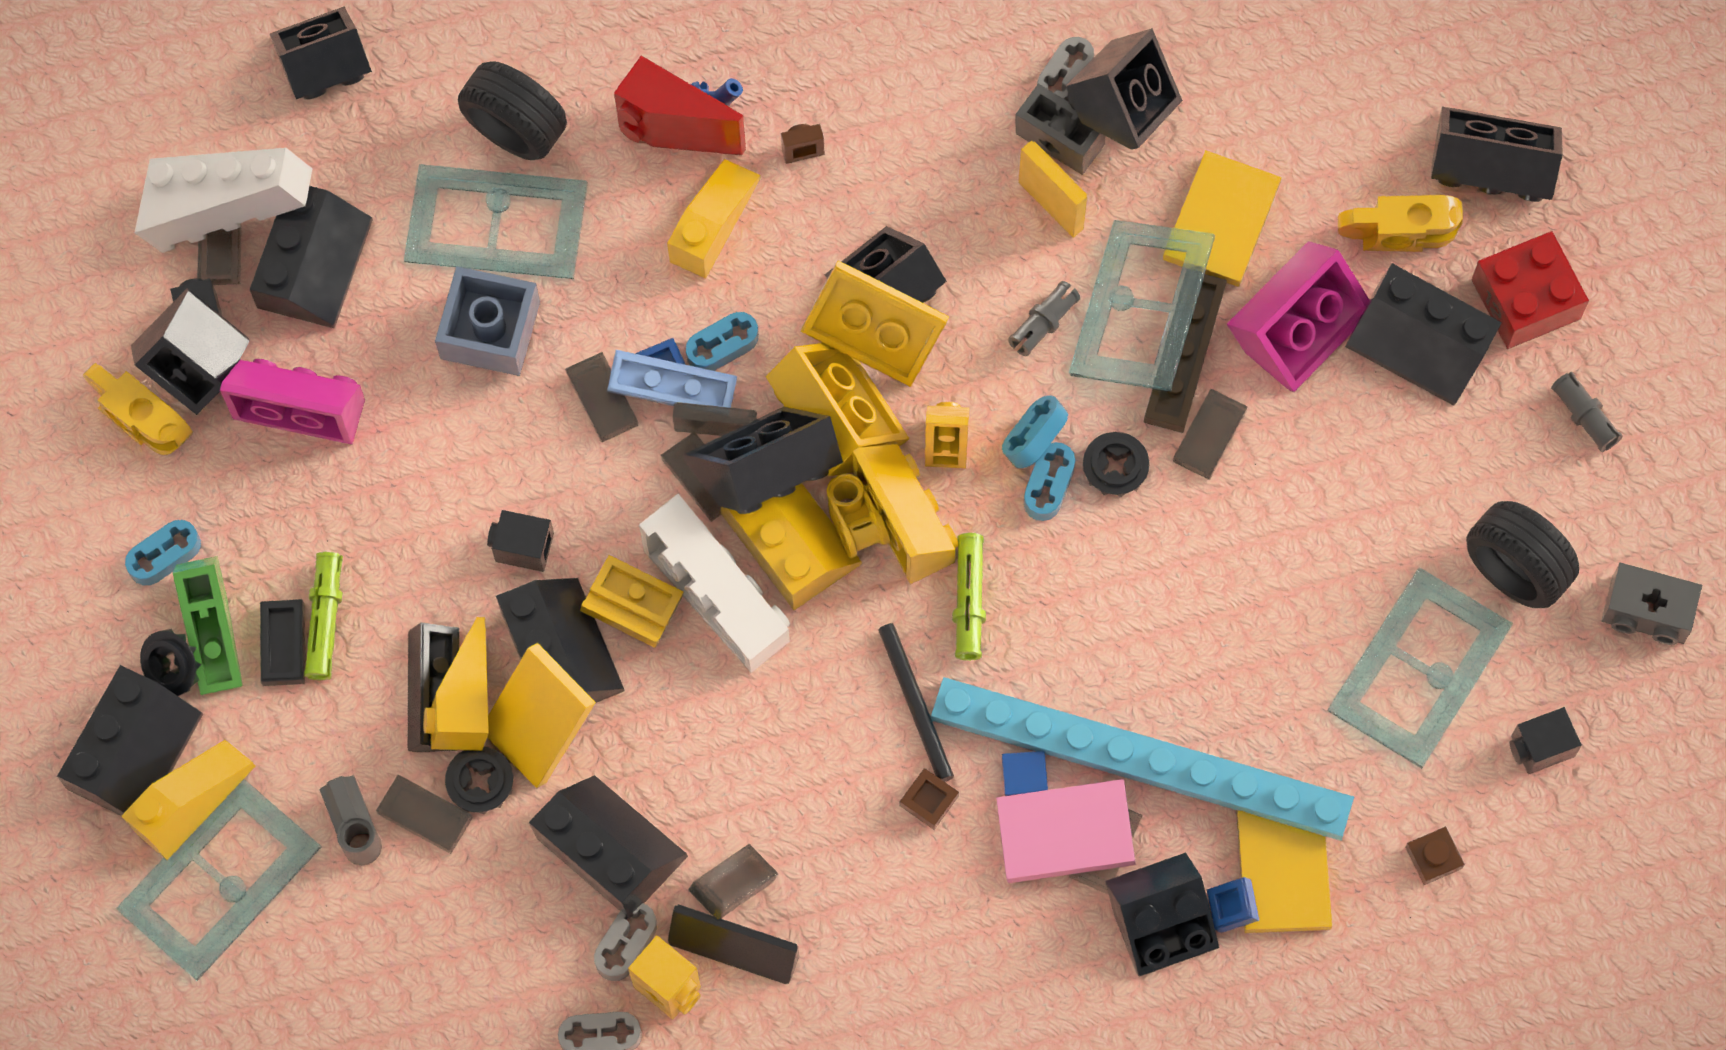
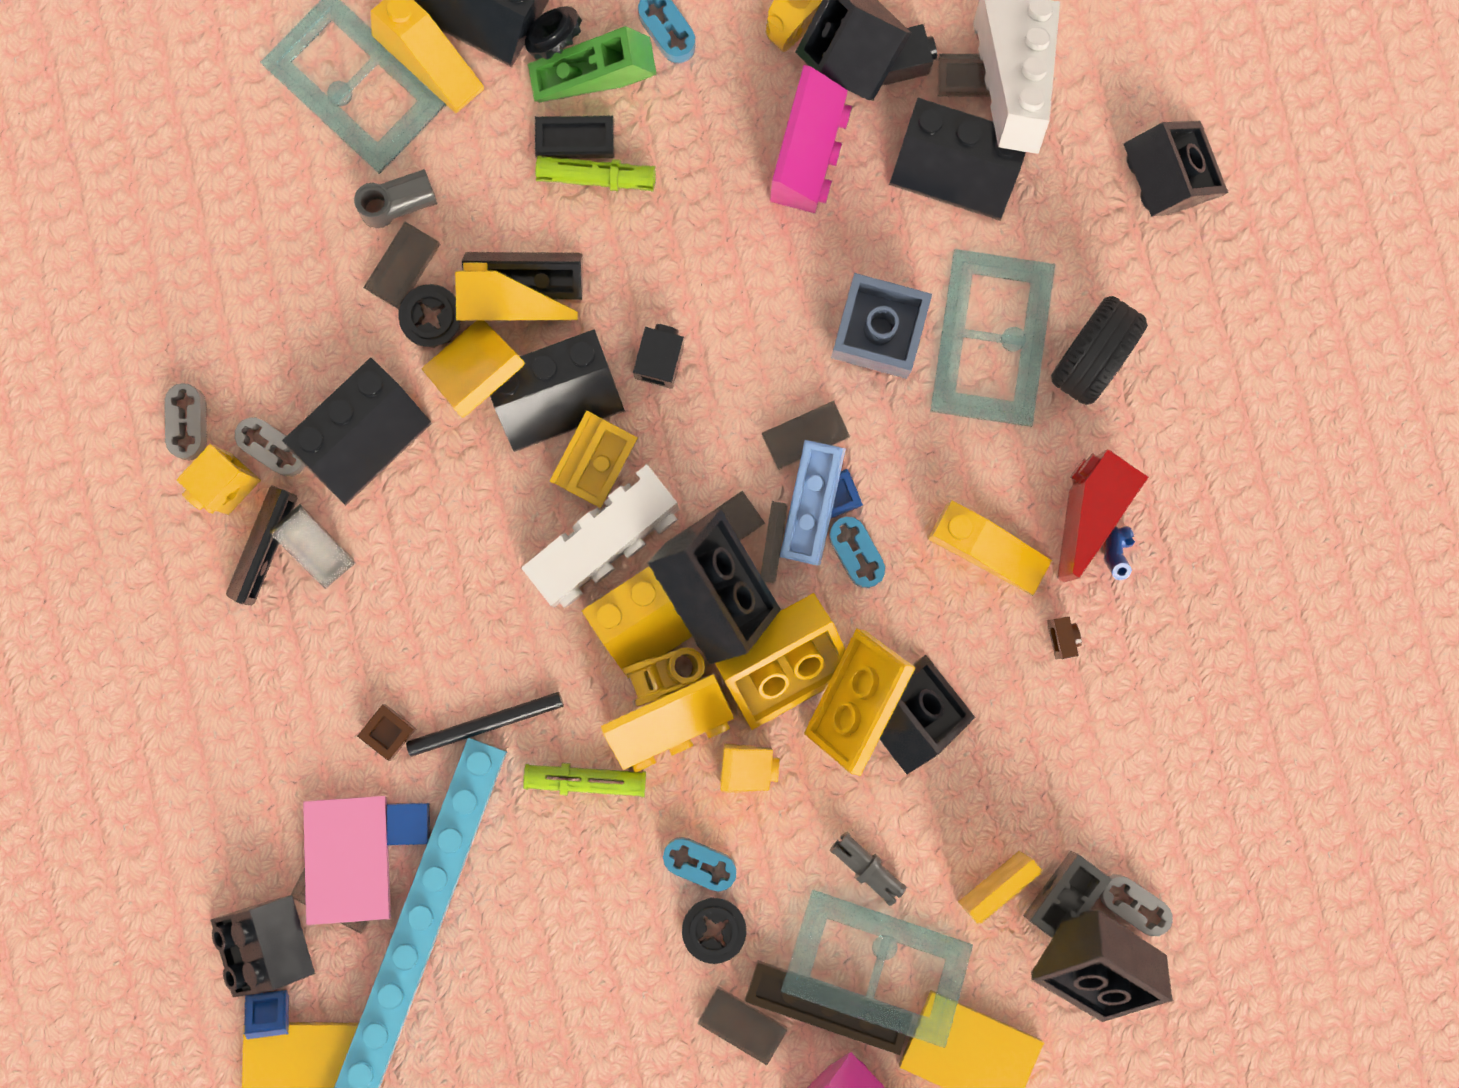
camera: 90 degrees right, 15 degrees up
(1035, 431) = (748, 853): dark azure beam -> none

